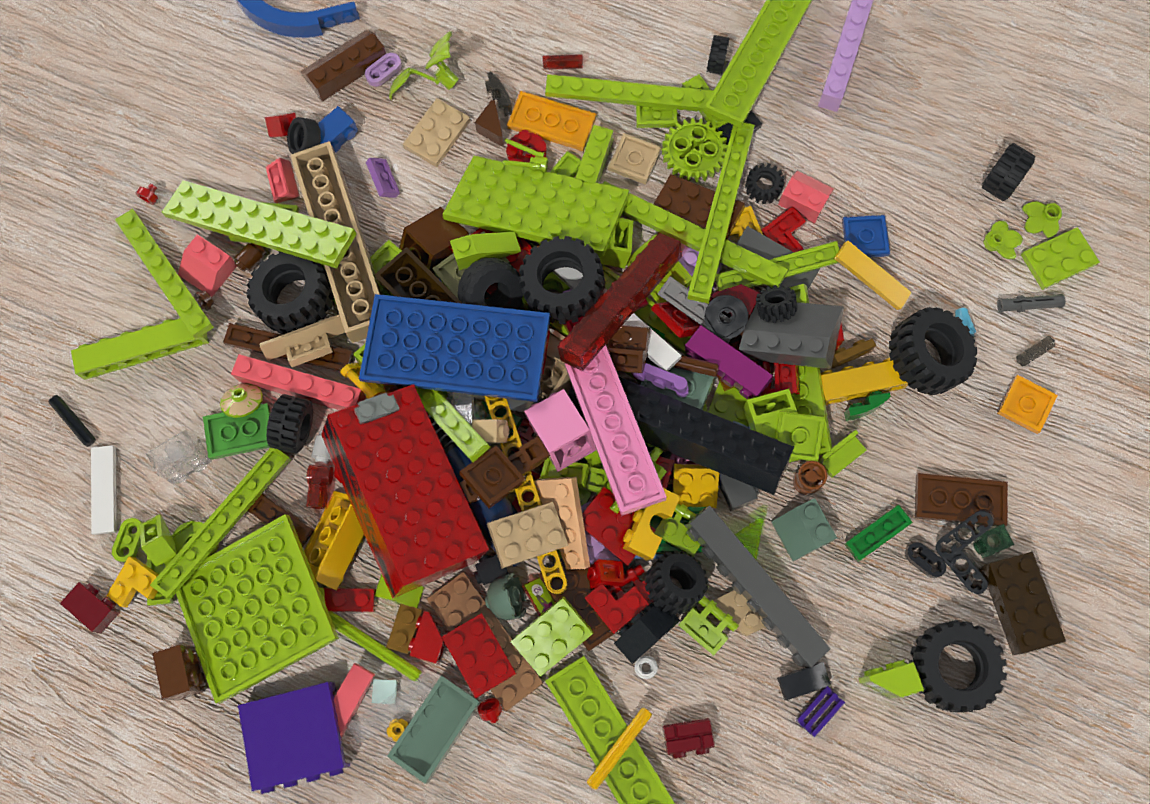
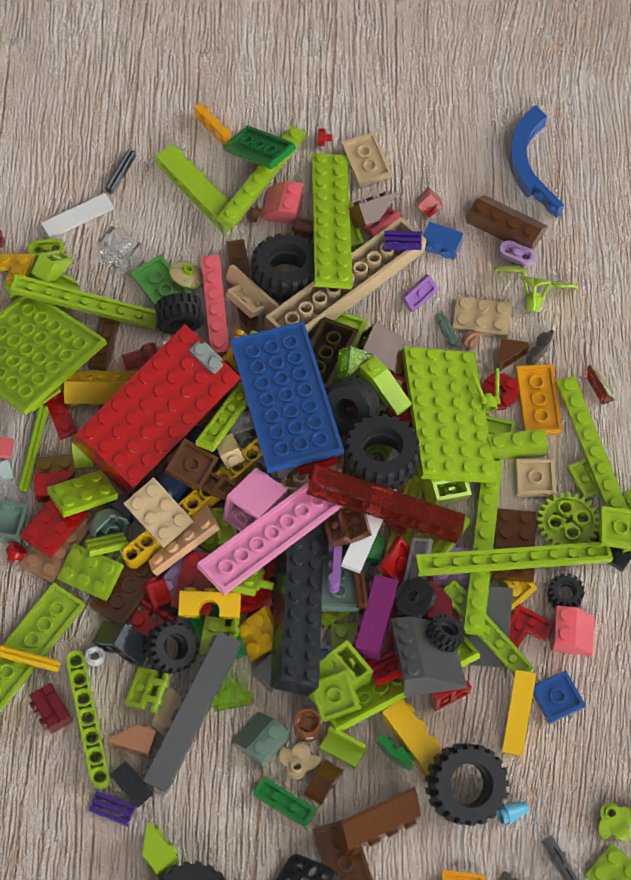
camera: 65 degrees right, 10 degrees down
(68, 299) = (214, 125): none -> light orange plate
(127, 260) = (259, 147): none -> green plate
(198, 163) = (366, 159): none -> tan plate
(265, 182) = (371, 211): none -> slope
(303, 134) = (424, 219): black tyre -> none
(318, 160) = (402, 237): none -> dark purple tile
(434, 170) = (447, 329): none -> sand green axle
(444, 268) = (350, 360): none -> clear neon green slope
(458, 152) = (470, 339): none -> medium nougat plate
(459, 610) = (82, 493): none -> lime plate
(528, 605) = (106, 544): none -> lime tile
(613, 612) = (129, 610): red plate -> none
(727, 705) = (91, 728): none -> lime beam
(759, 657) = (135, 740): none -> nougat slope
(835, 500) = (298, 757): none -> tan plate
(858, 350) = (444, 727): pearl gold plate -> none
(870, 486) = (323, 782): none -> reddish brown slope
(928, 556) = (272, 851): black beam -> none
(938, 451) = (377, 822): none -> reddish brown slope

